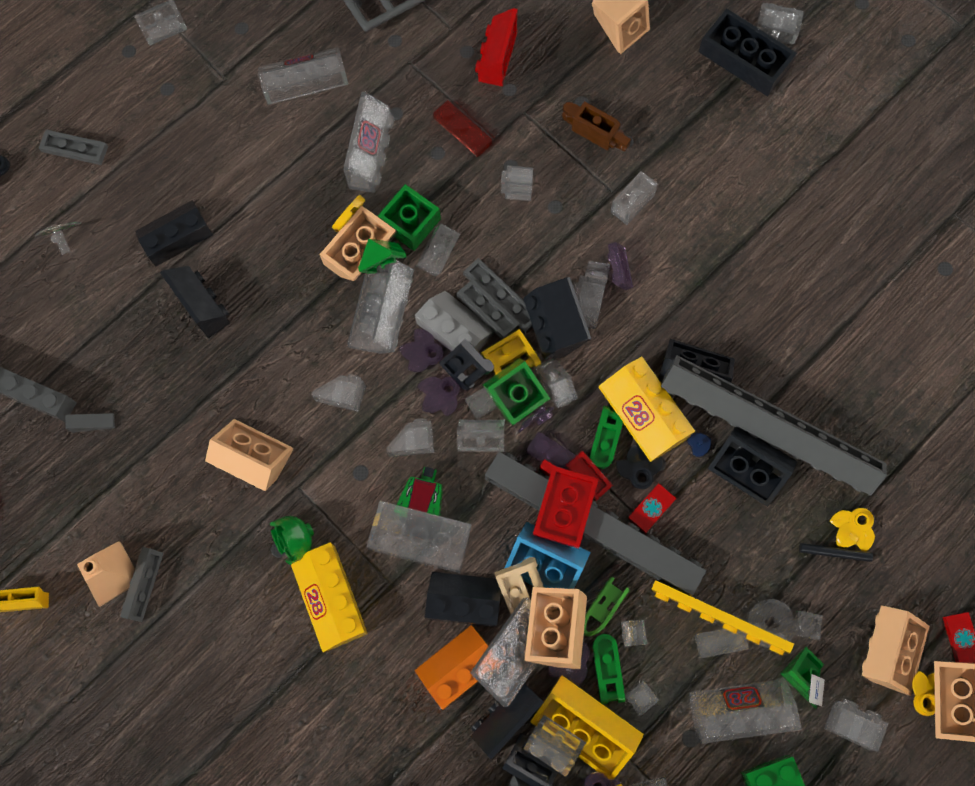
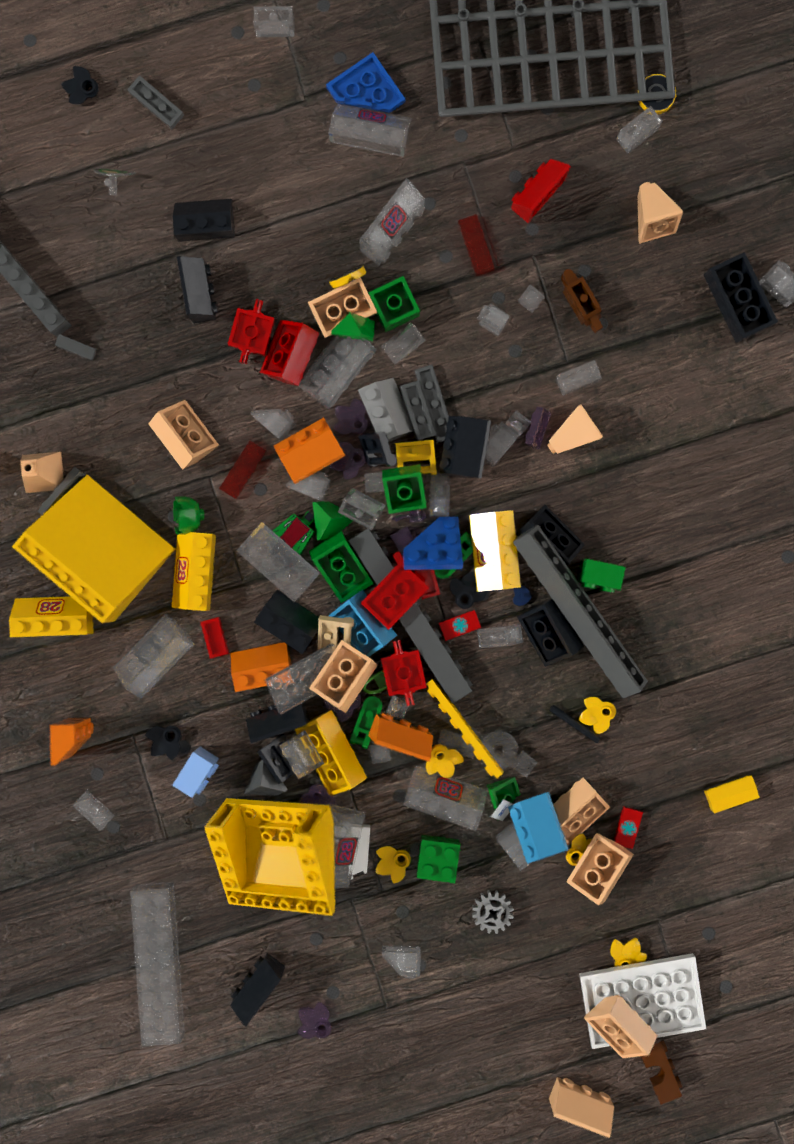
camera: 20 degrees right, 15 degrees up
(187, 734) = (49, 617): none -> yellow slope
(205, 627) = (95, 549): none -> yellow slope
(273, 315) = (251, 331): none -> red plate
(279, 39) = (366, 87): none -> blue plate
(324, 316) = (289, 352): none -> red slope
(327, 720) = (153, 656): none -> clear slope
(331, 461) = (242, 469): none -> clear red plate
(388, 662) = (214, 637): none -> red tile
(394, 402) = (309, 450): none -> orange slope
(452, 466) = (328, 520): none -> green slope
(490, 509) = (341, 567): none -> green slope
(544, 150) = (531, 298): none -> clear plate
(582, 434) = (435, 547): none -> blue plate
(620, 589) = (403, 672): none -> red plate
(657, 662) = (401, 736): none -> orange slope
(662, 249) = (574, 432): none -> light nougat slope
(701, 496) = (500, 636): none -> clear slope
(721, 670) = (445, 763): none -> yellow plate
(771, 376) = (600, 574): none -> green brick
(869, 687) = (538, 828): none -> dark azure slope

